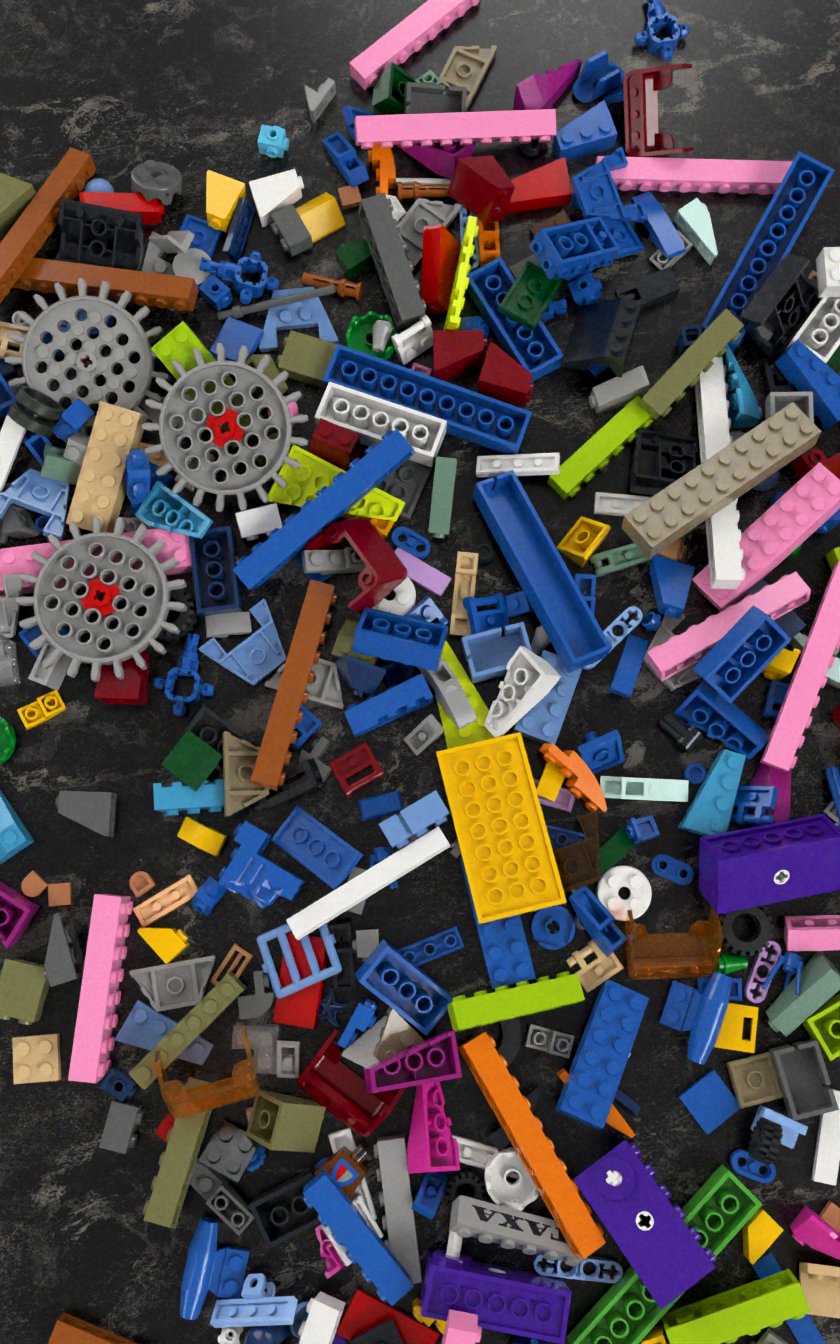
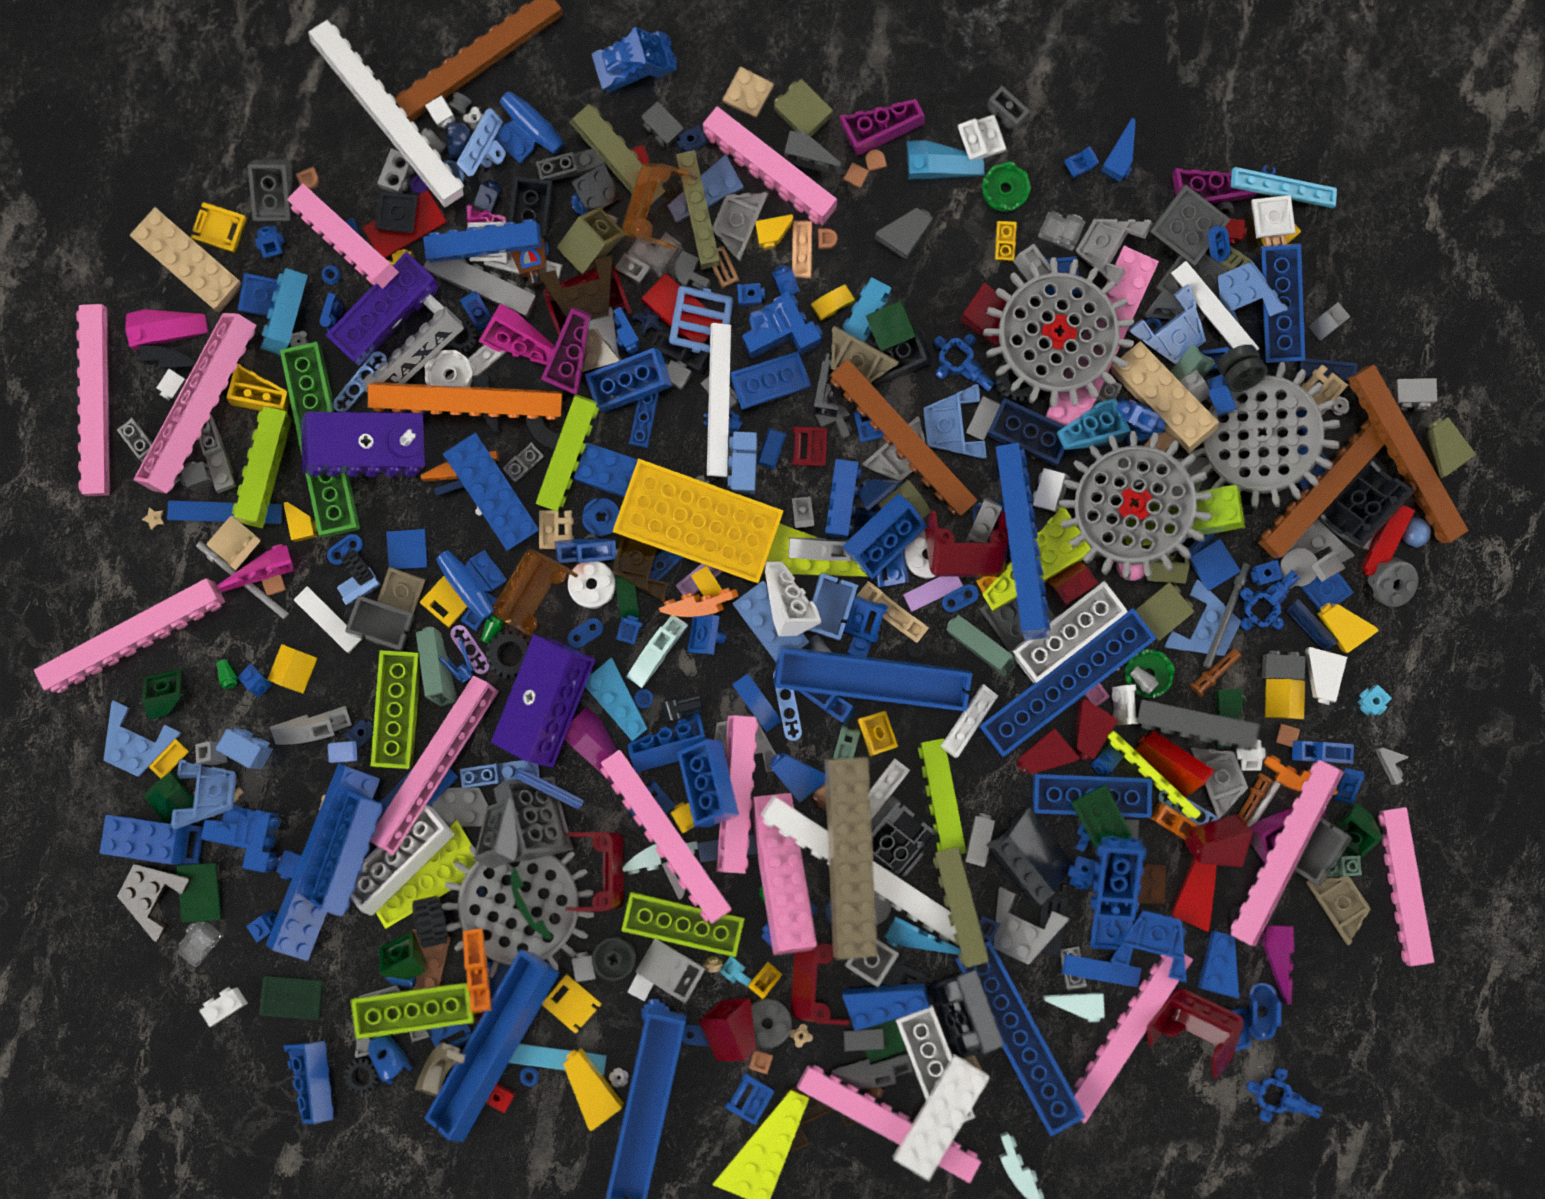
camera: 130 degrees right, 5 degrees up
(67, 1202) = (634, 59): none -> blue brick
(251, 923) = (745, 299): none -> blue brick
(302, 1263) = (488, 195): none -> dark blue bracket
(345, 1083) = (589, 296): none -> dark brown wing
(652, 621) = (779, 743): blue plate -> none
(676, 308) = (1019, 937): none -> light grey wing
(754, 797) = (597, 725): blue plate -> none

